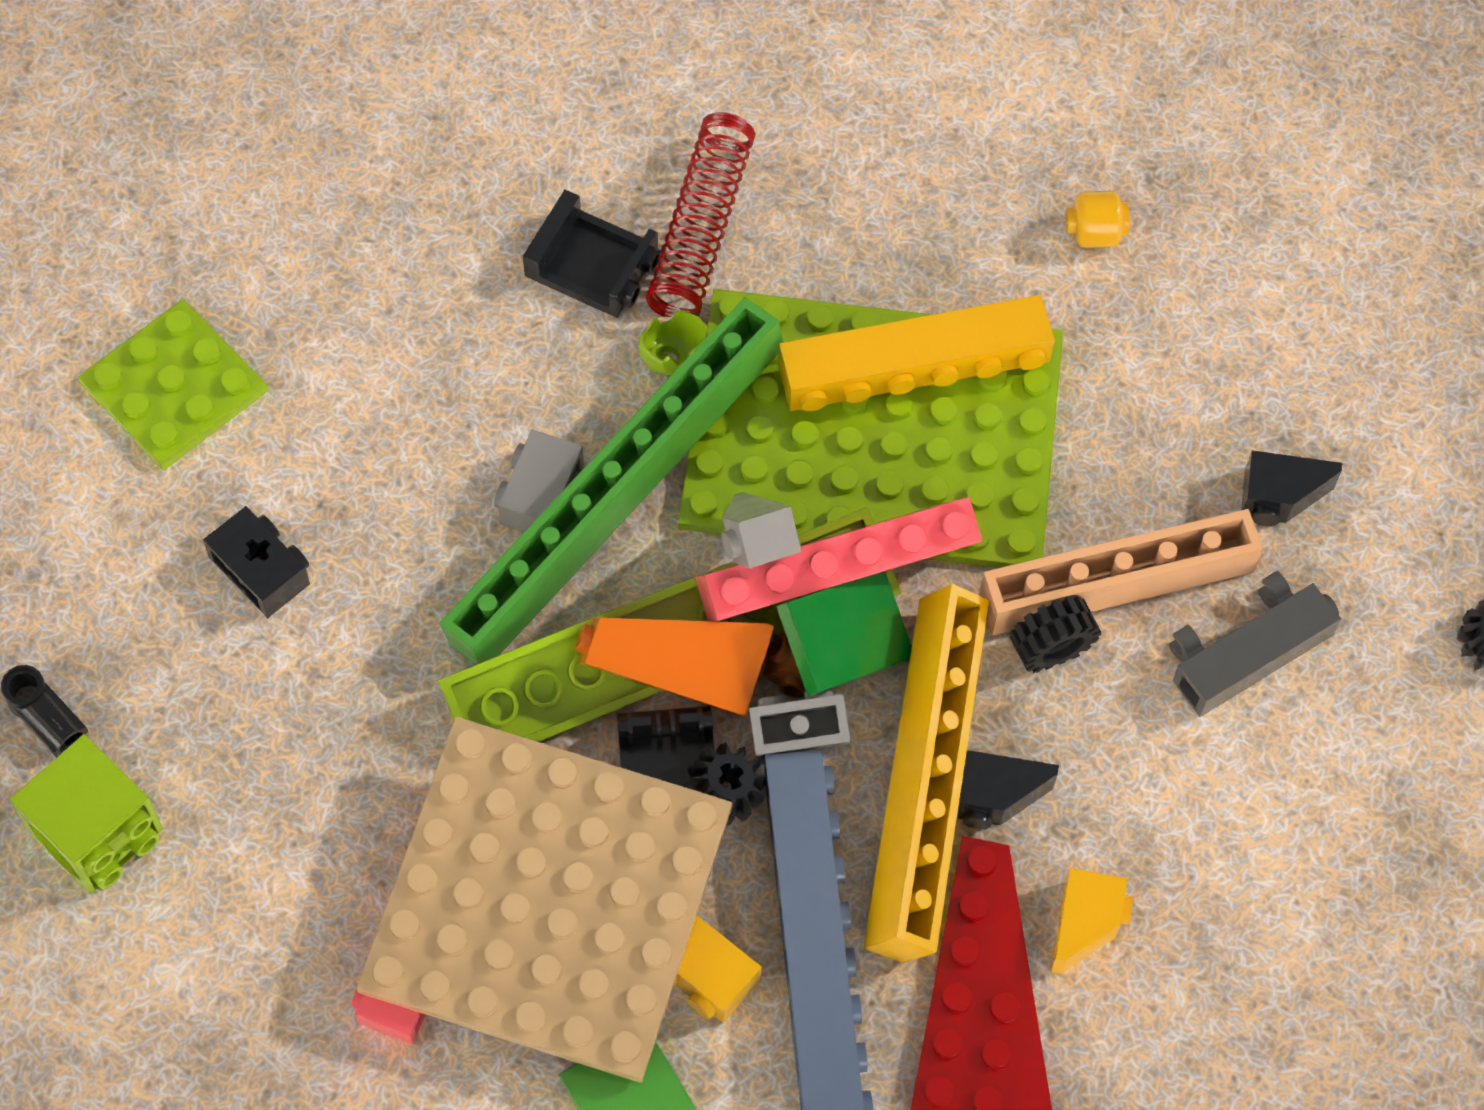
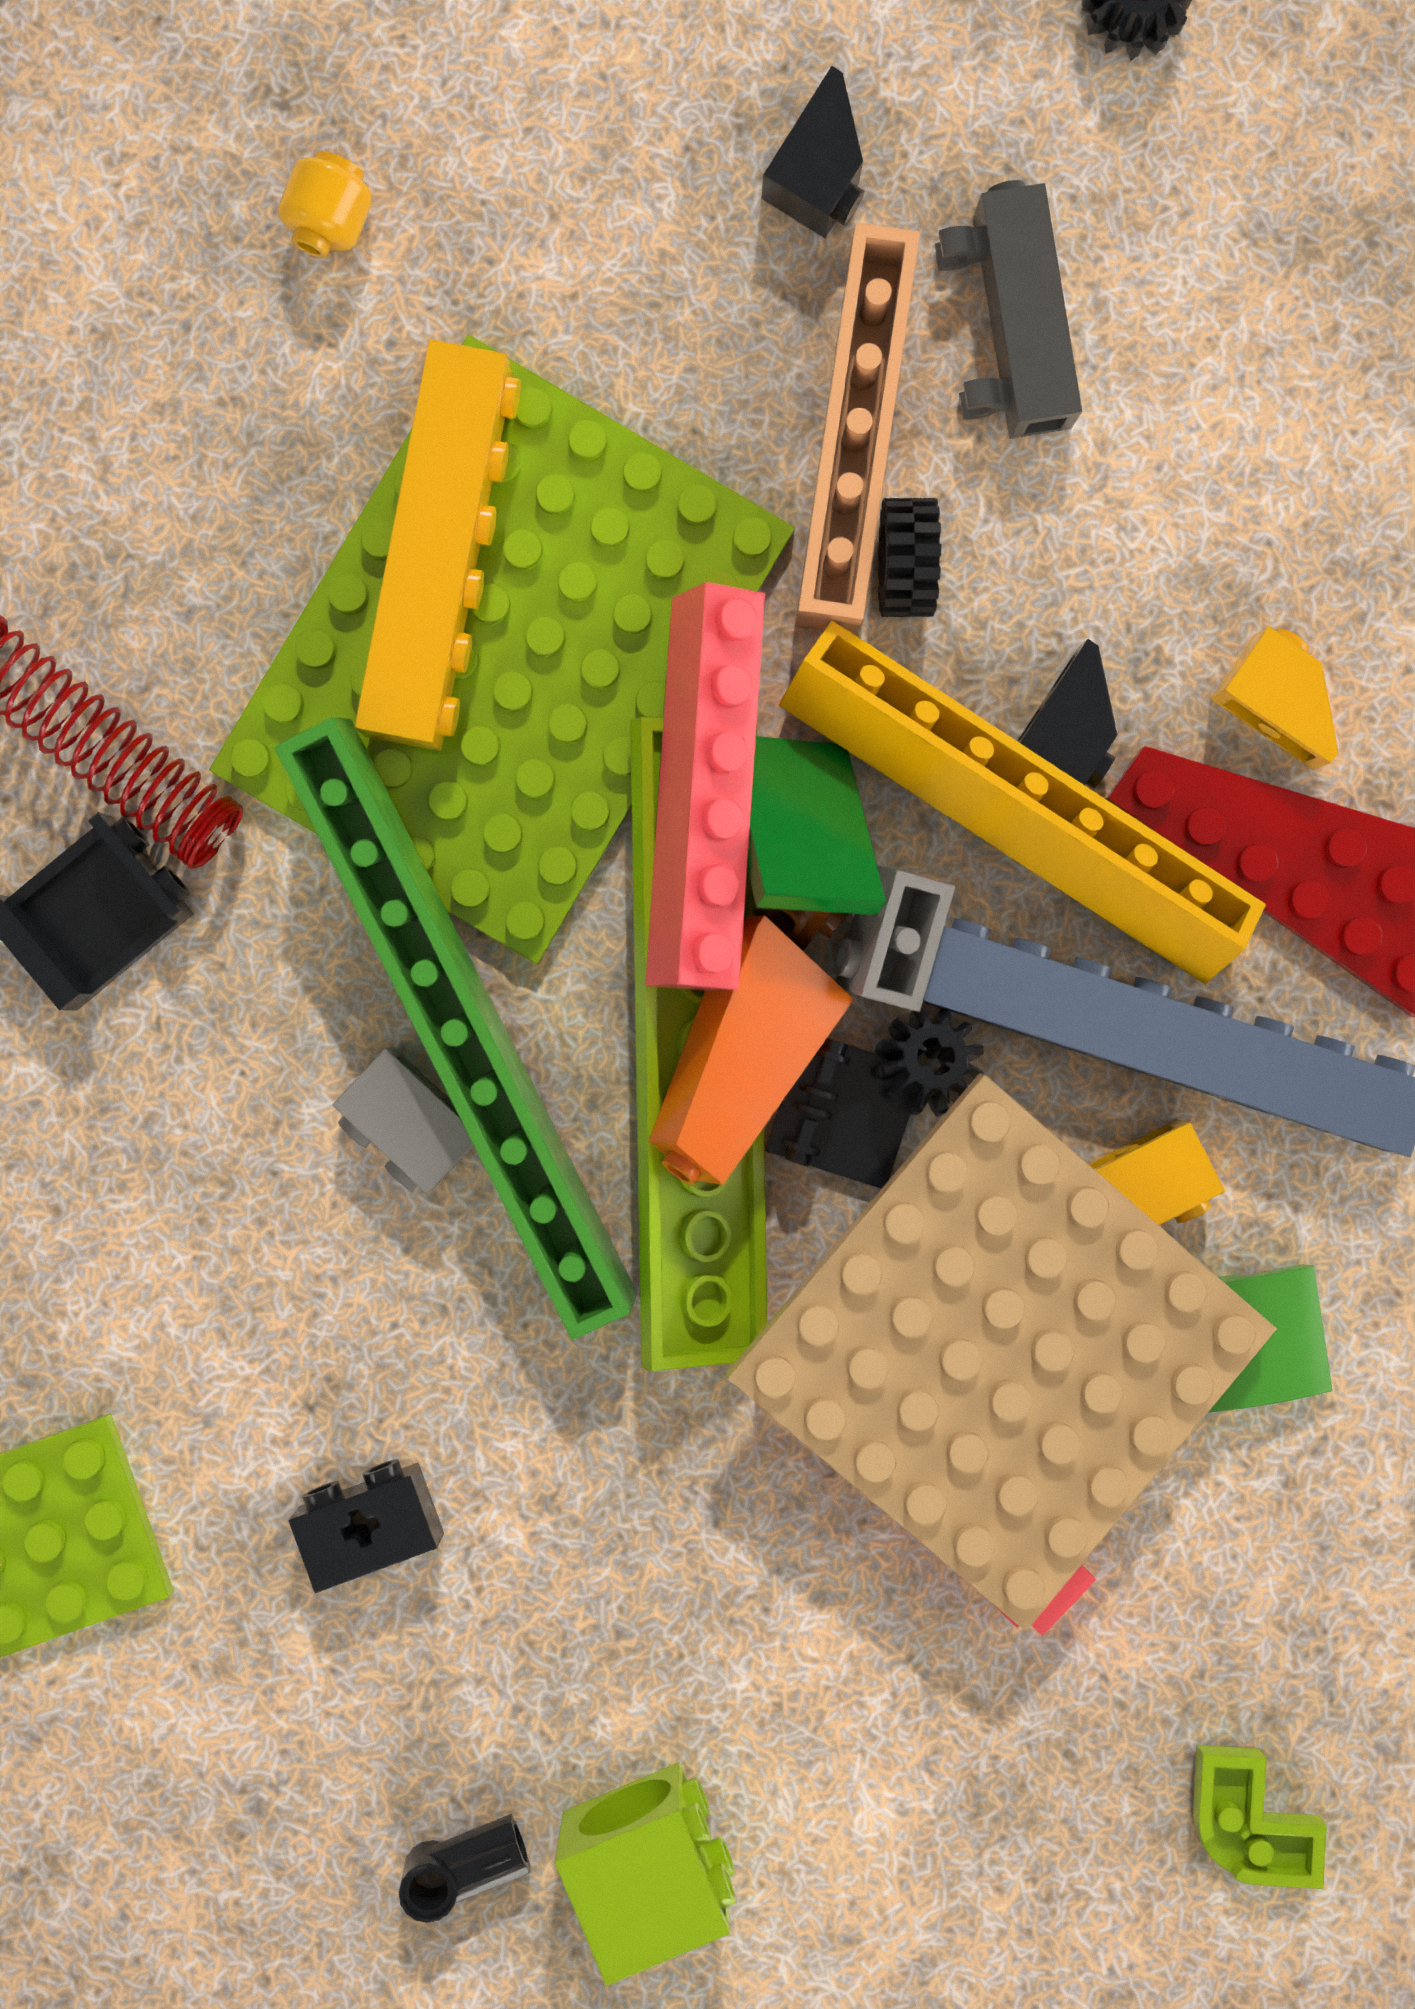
camera: 60 degrees left, 25 degrees up
(664, 336) = (253, 863): lime hair -> none
(758, 531) = (640, 887): light grey slope -> none

